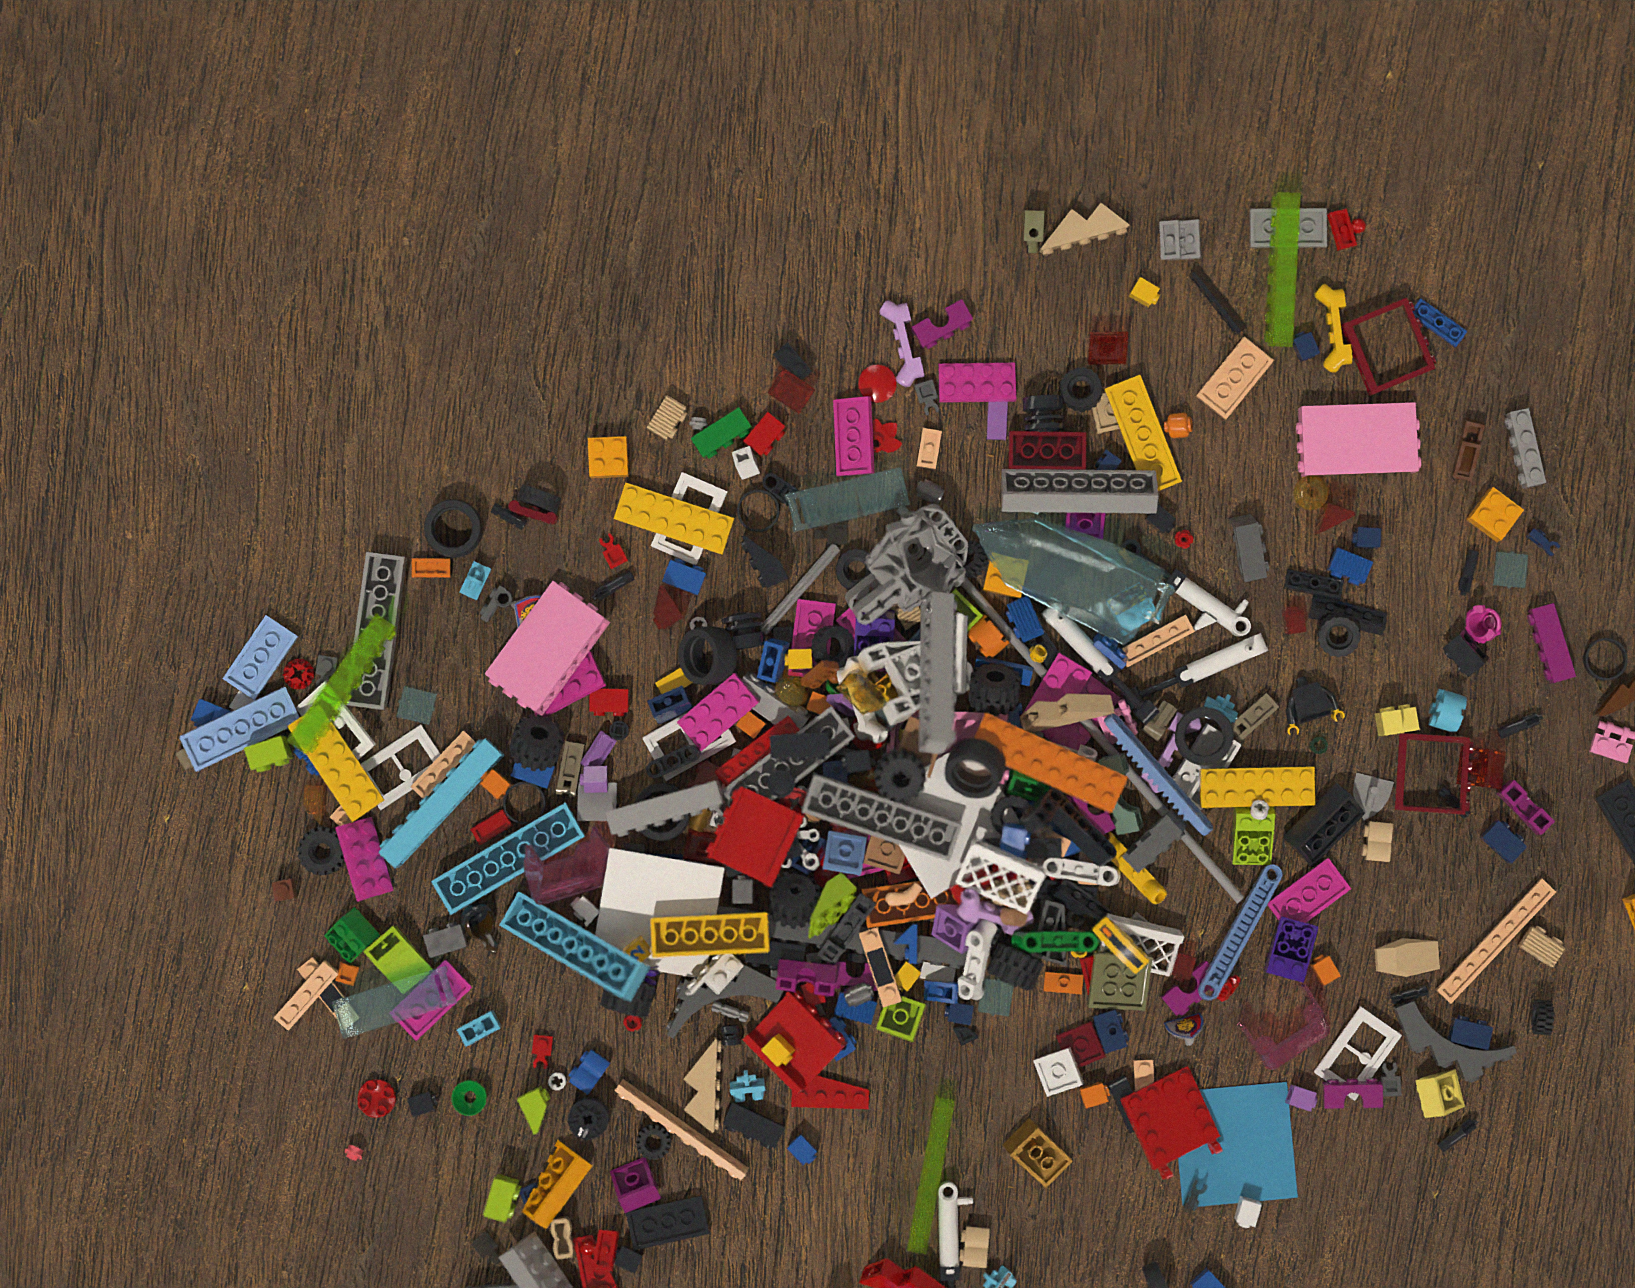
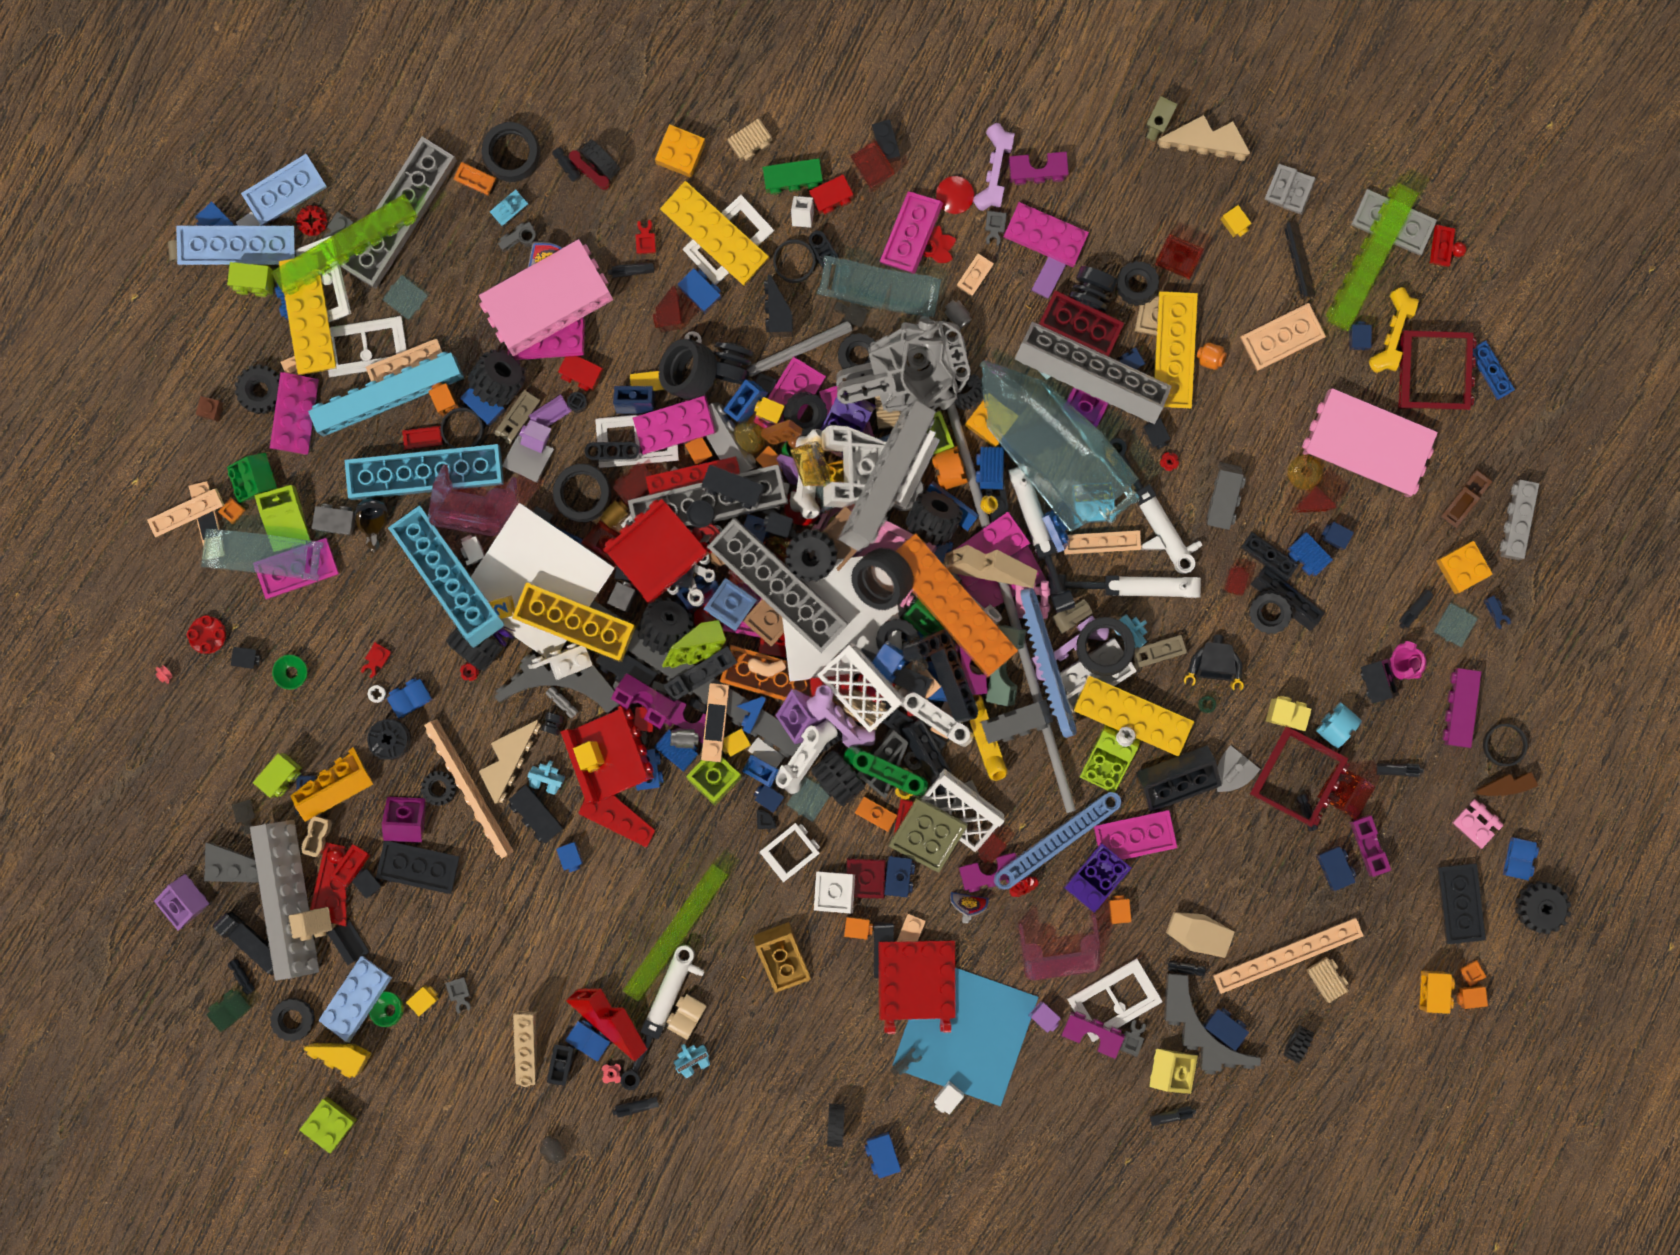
camera: 30 degrees right, 0 degrees up
(313, 801) = (273, 341): clear orange slope -> none
(479, 1028) = (327, 613): medium azure brick -> none
(535, 1107) = (345, 707): lime slope -> none
(665, 807) = (586, 488): light grey brick -> none
(698, 423) = (775, 157): light grey plate -> none
(1013, 917) = (856, 730): medium nougat brick -> none
(1018, 1037) = (774, 863): none -> white window
(1121, 944) = (943, 801): yellow slope -> none
(1378, 841) = (1221, 816): tan brick -> none

